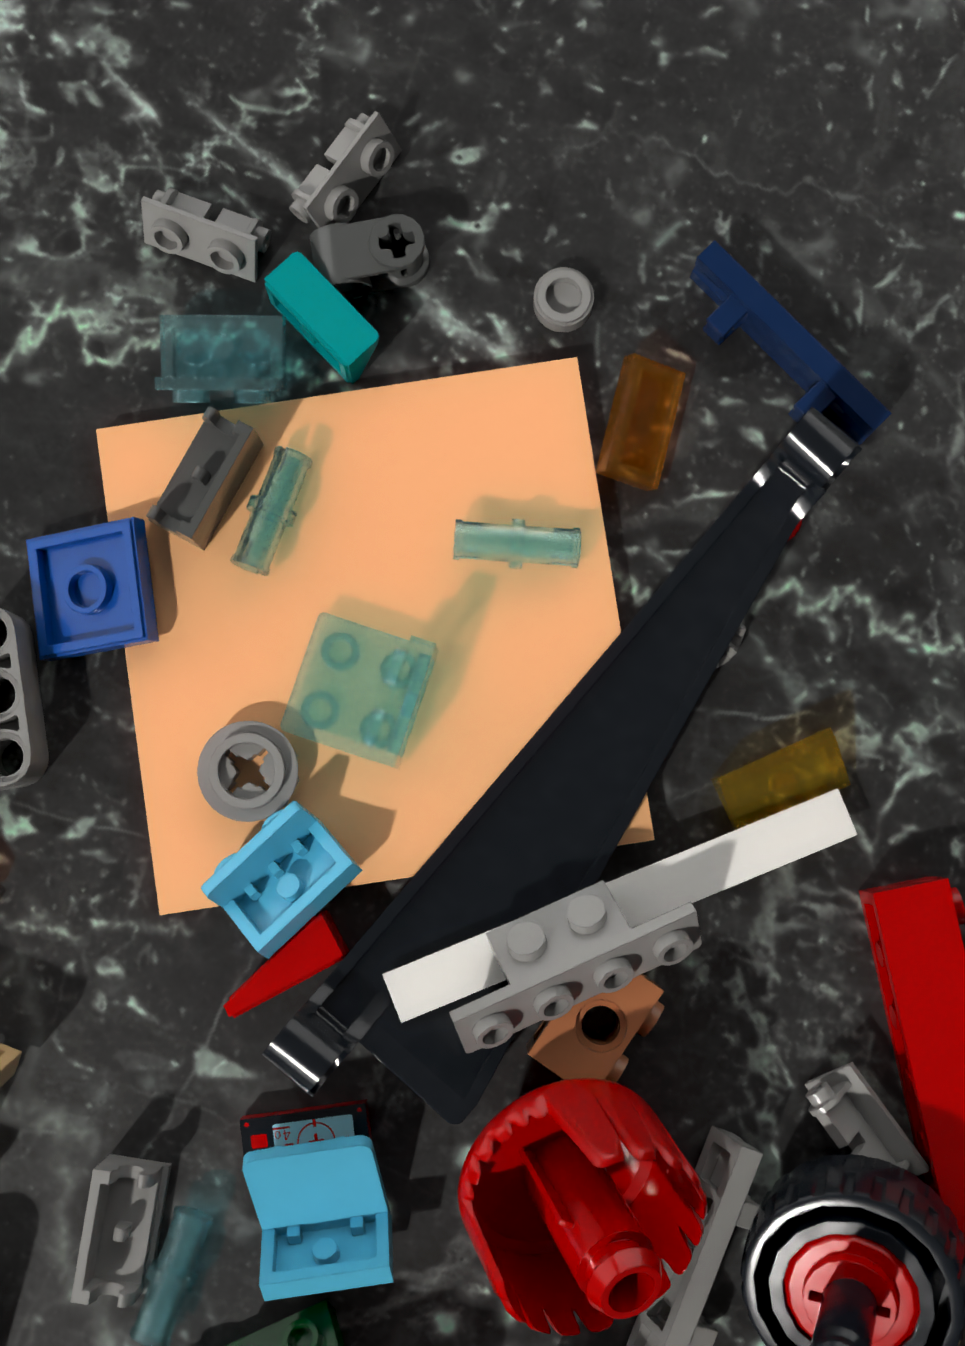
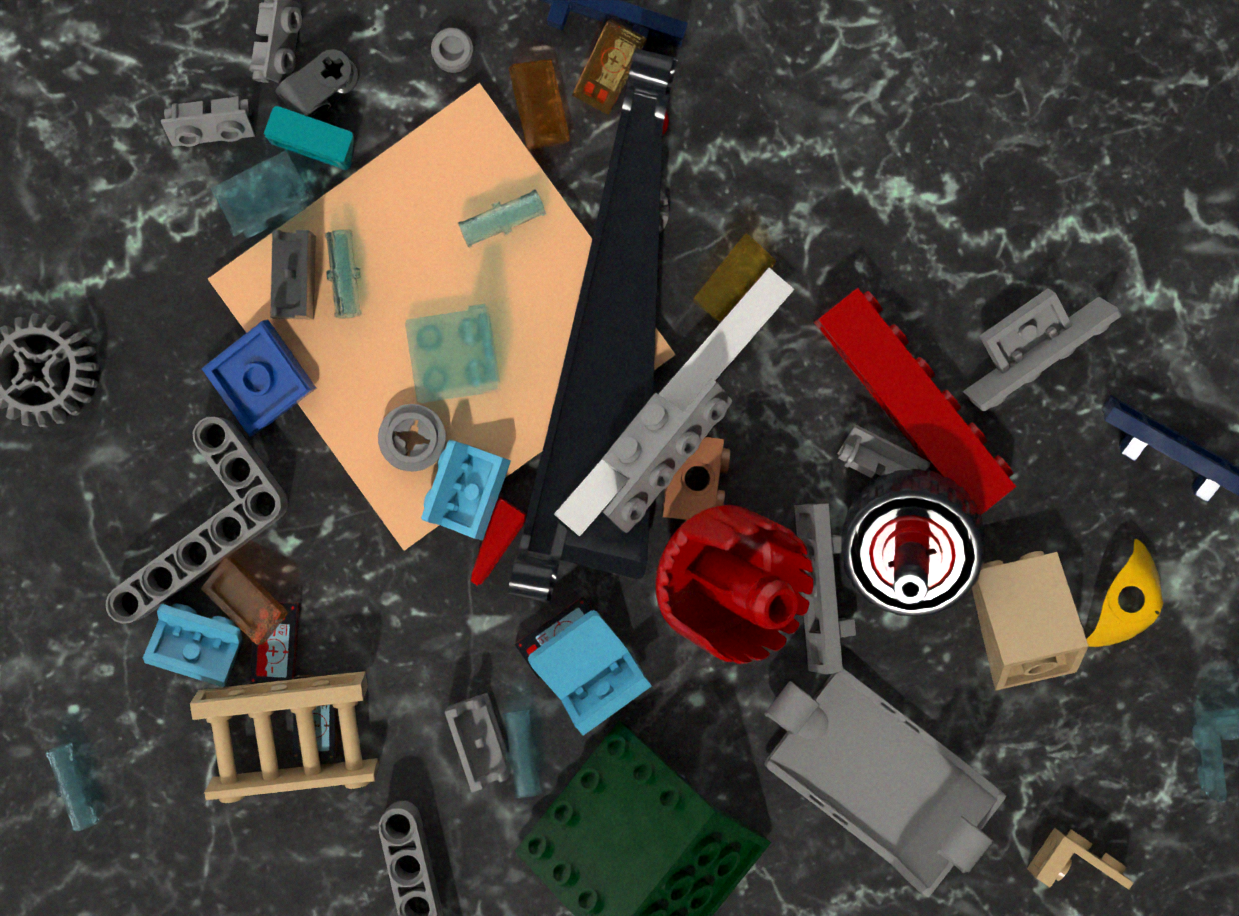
camera: 30 degrees left, 5 degrees up
(756, 419) = (608, 66): none -> clear orange tile

